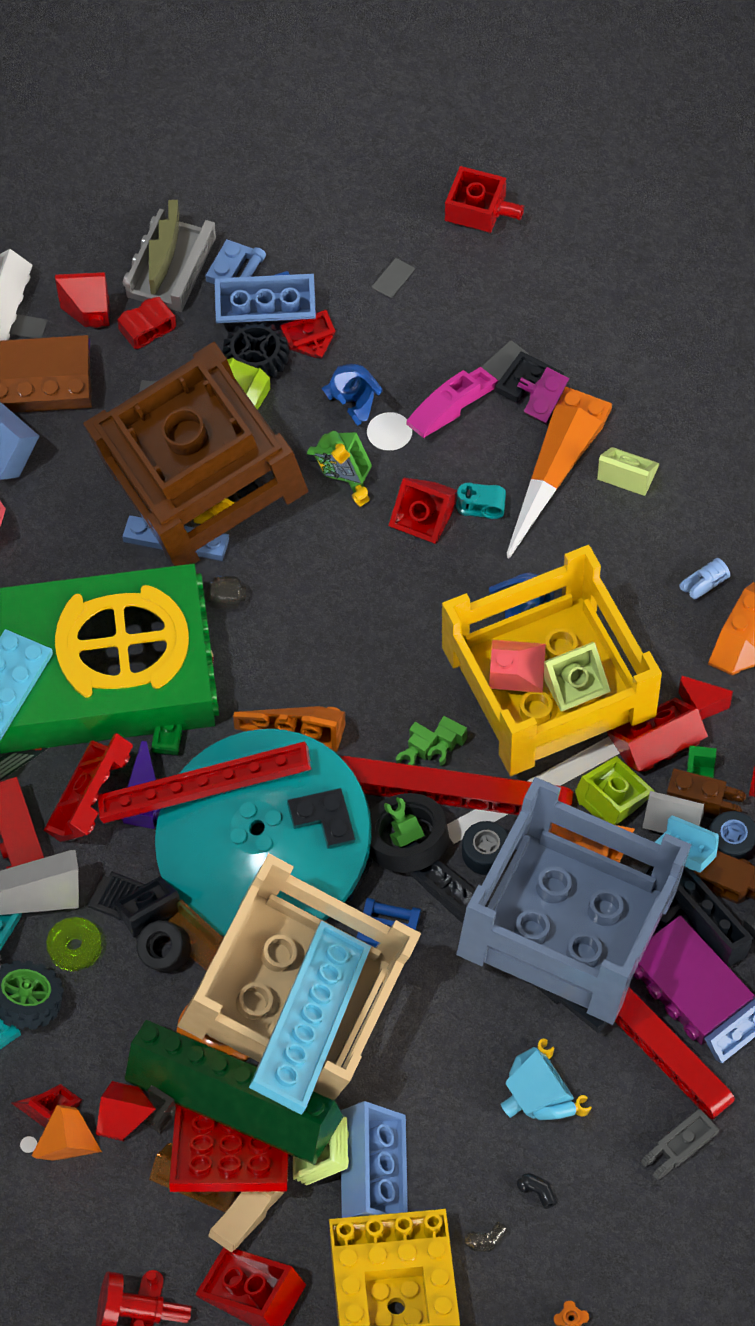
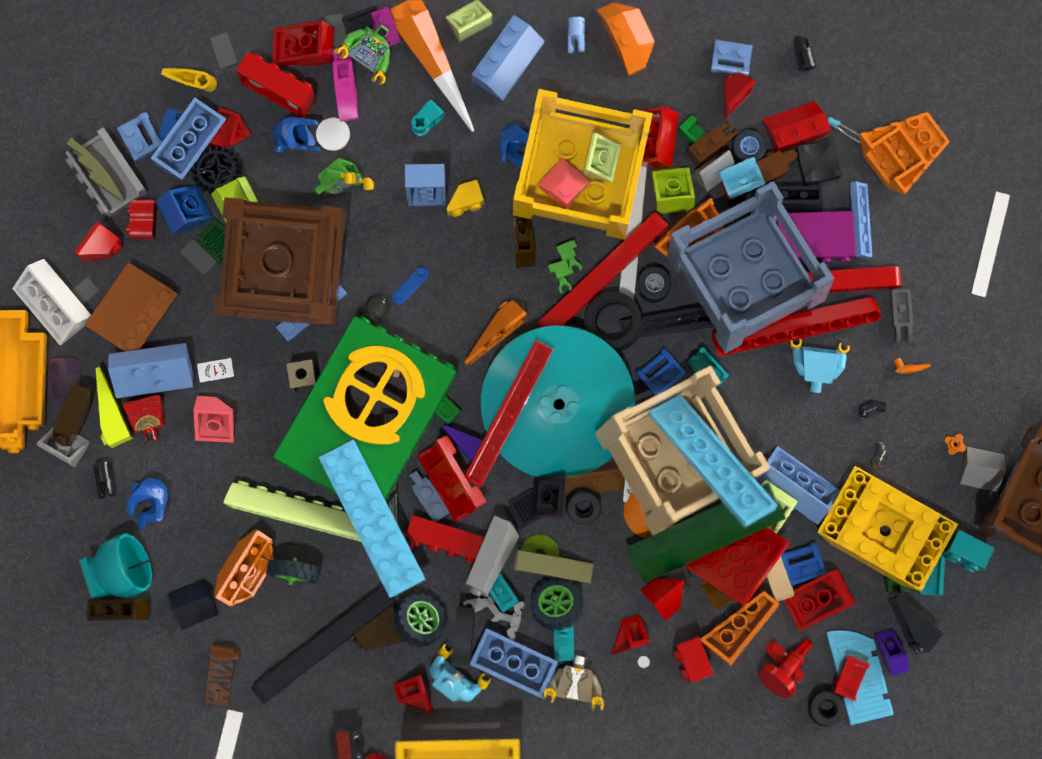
camera: 60 degrees left, 20 degrees up
(38, 495) = (215, 370): none -> white sticker
(52, 785) = (429, 497): none -> sand blue hinge
(65, 1136) = (662, 639): orange slope -> none
(65, 1187) = (692, 660): none -> red piece
(66, 961) = (553, 566): none -> olive slope
(84, 562) = (310, 378): none -> dark tan piece
(145, 1218) = (736, 632): none -> orange wedge
(182, 341) = (183, 209): none -> blue slope
(273, 1245) = (806, 569): none -> blue plate
(281, 612) = (414, 281): none -> blue piece
(327, 809) = (583, 357): black plate -> none
(336, 267) = (191, 78): none -> yellow piece
(393, 338) = (276, 85): none -> red piece
(398, 533) = (425, 184): none -> medium blue brick
(405, 826) = (609, 319): bright green piece -> none
(422, 595) = (466, 197): none -> yellow slope
(422, 682) = (523, 241): none -> dark brown slope
(423, 508) = (405, 149): red slope -> none
(434, 973) = (703, 360): none -> teal hinge
(462, 338) = (303, 44): none -> red slope
(505, 390) = (368, 49): none -> torso
(571, 1038) = (809, 324): none -> red beam
(620, 529) = (507, 58): none -> medium blue slope
(622, 1200) = (907, 369): none -> orange bar
(704, 696) = (651, 96): red slope -> none

